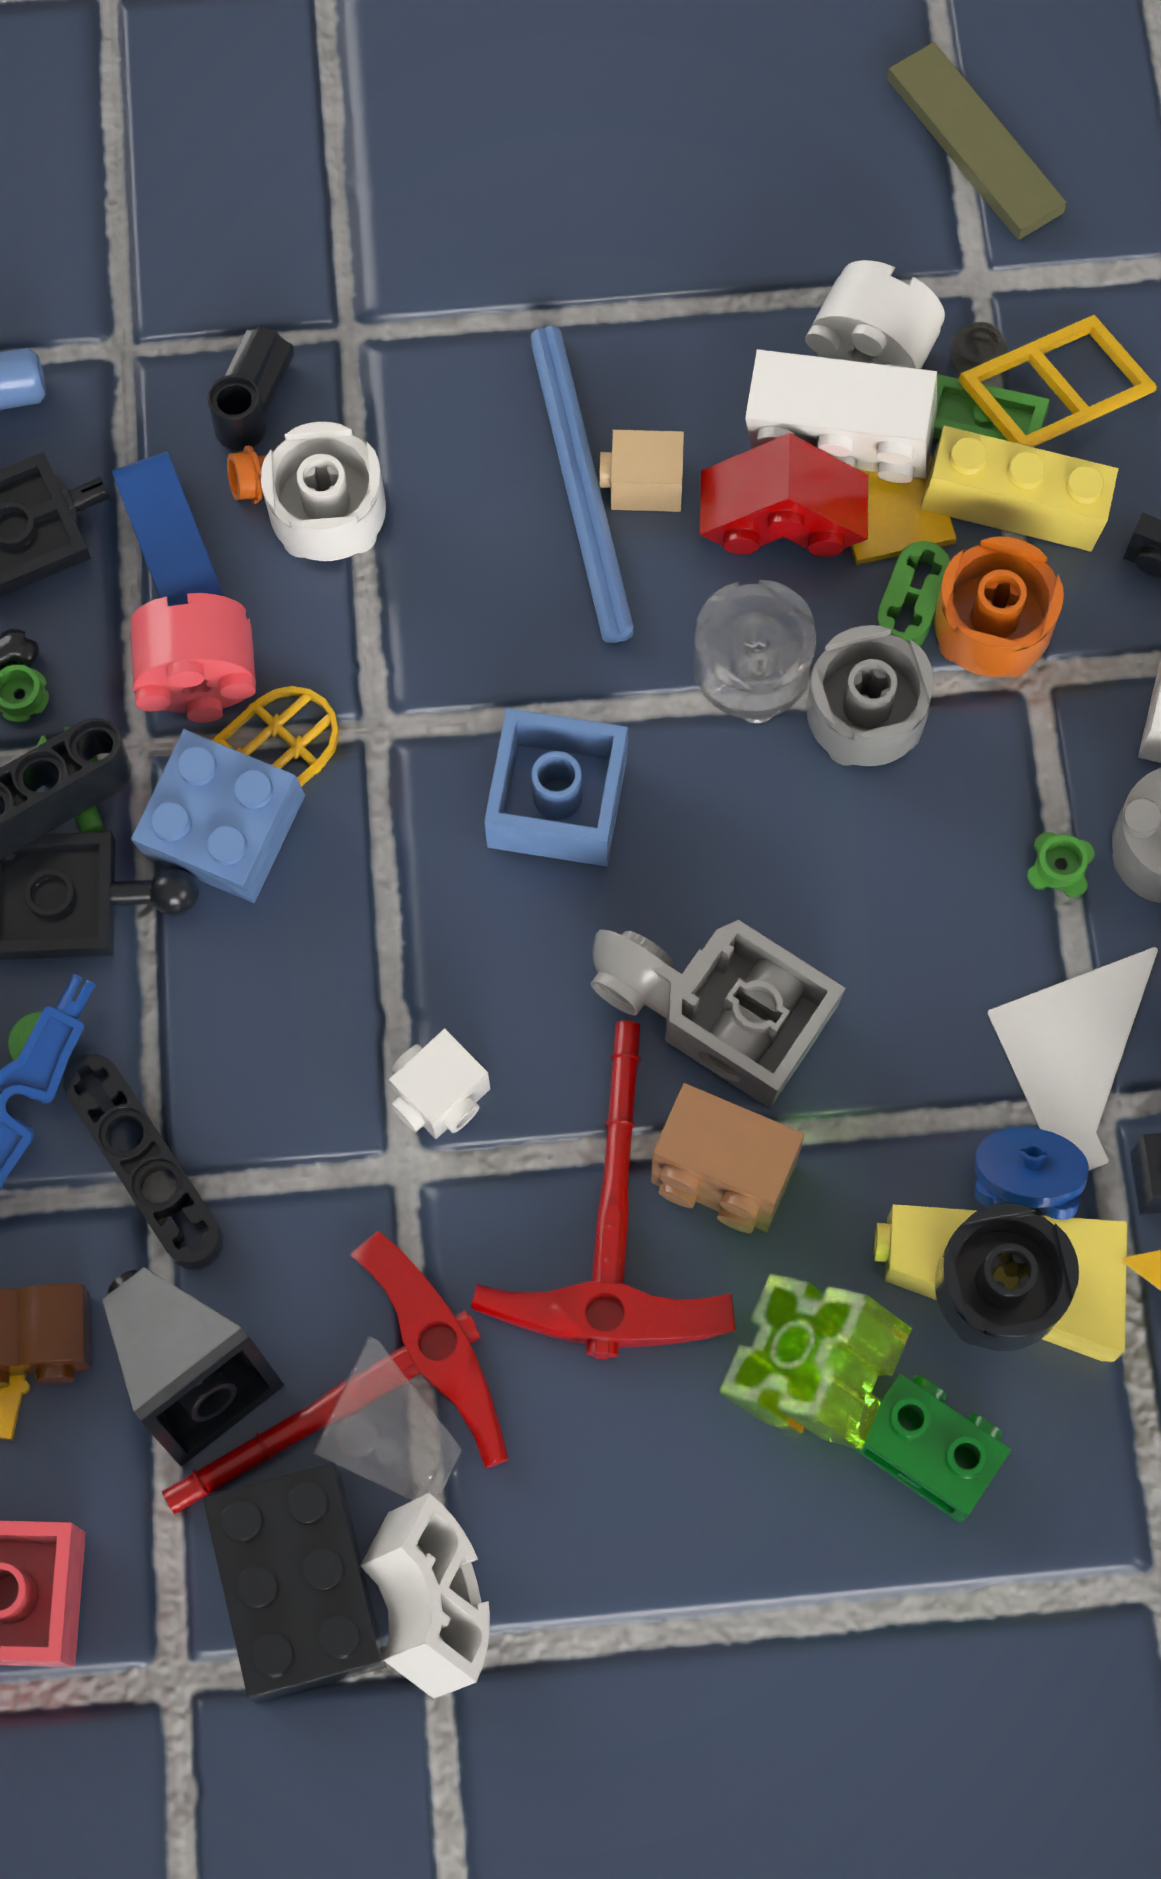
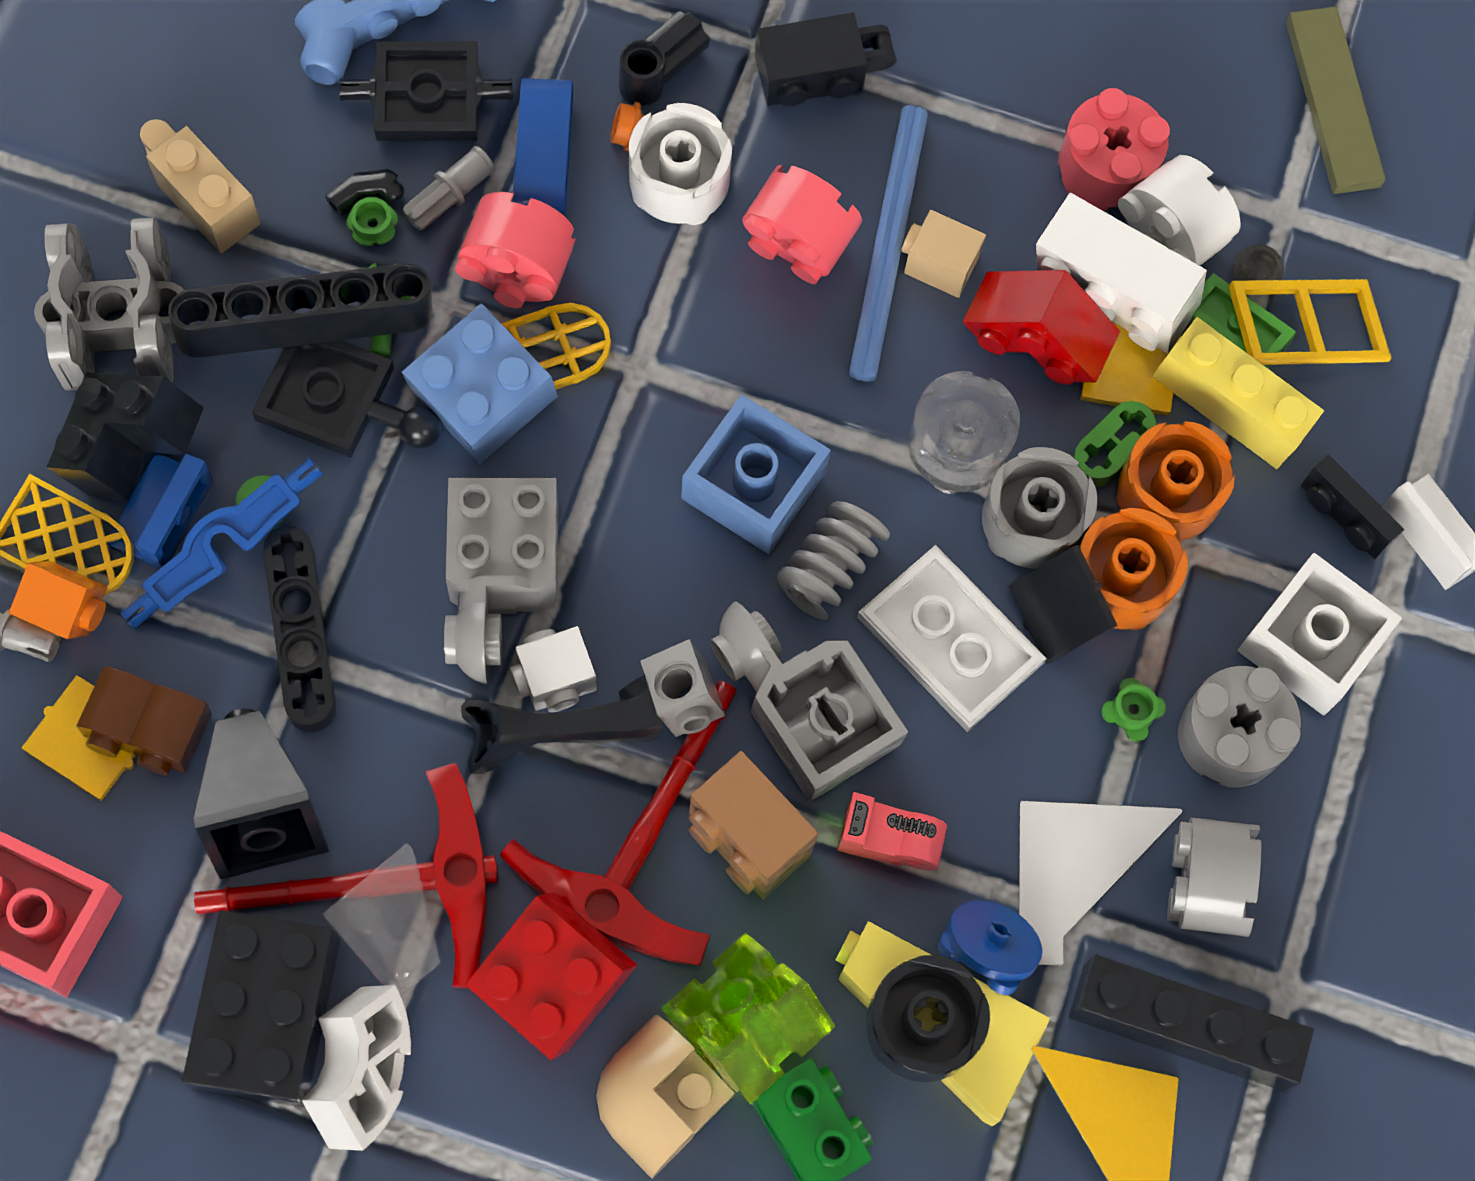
camera: 15 degrees right, 0 degrees up
(85, 622) = (448, 188): none -> light grey axle
(326, 998) = (497, 562): none -> light grey brick
(418, 319) = (819, 58): none -> black brick
(421, 1171) = (509, 730): none -> black animal
(482, 500) = (800, 222): none -> coral brick
(567, 1032) = (673, 672): none -> light grey brick
(587, 1408) = (551, 975): none -> red brick
(672, 840) = (829, 555): none -> light grey piece
(754, 1484) = (658, 1095): none -> tan brick
(771, 286) = (1111, 147): none -> coral brick
(837, 872) = (951, 638): none -> white tile
(871, 1104) = (891, 834): none -> coral leg
(941, 786) = (1062, 604): none -> black piece
(1021, 713) = (1151, 550): none -> orange brick

